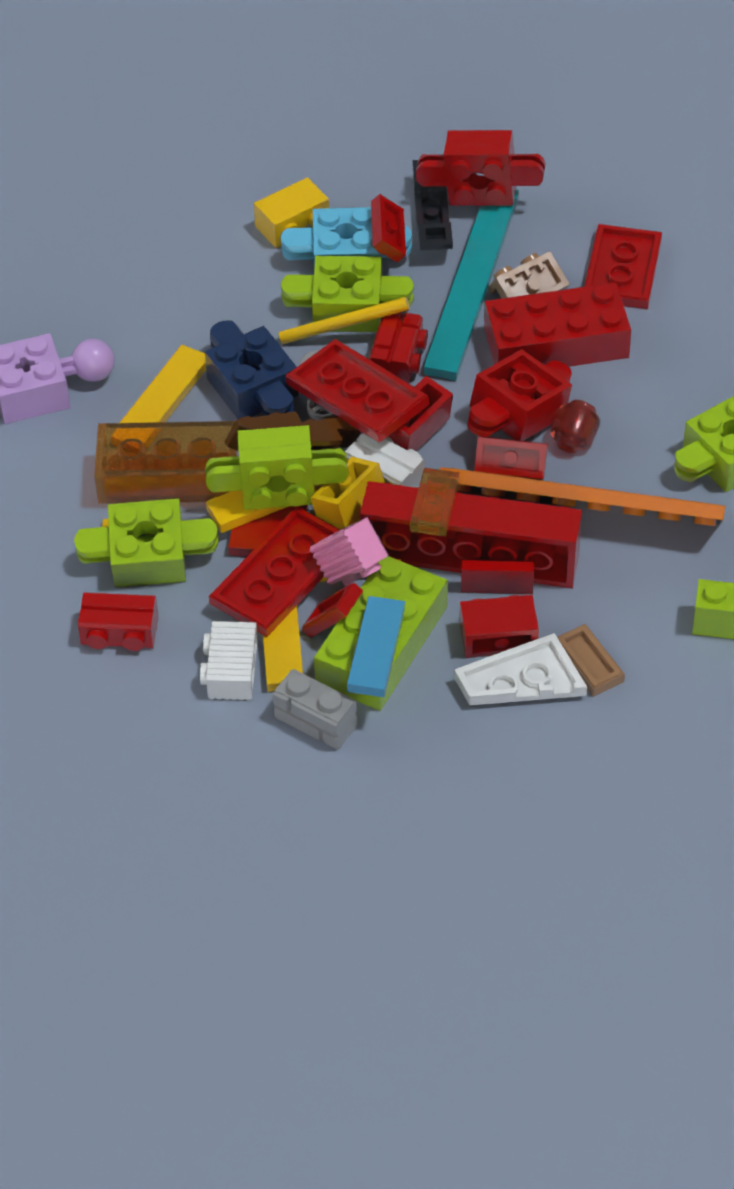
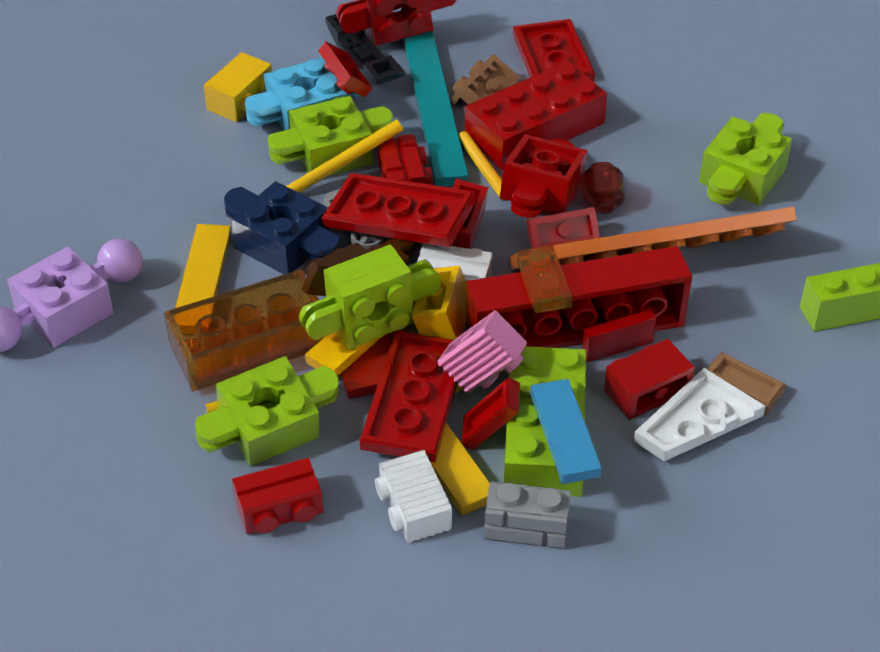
camera: 25 degrees left, 5 degrees down
(479, 349) = (481, 161): none -> yellow bar

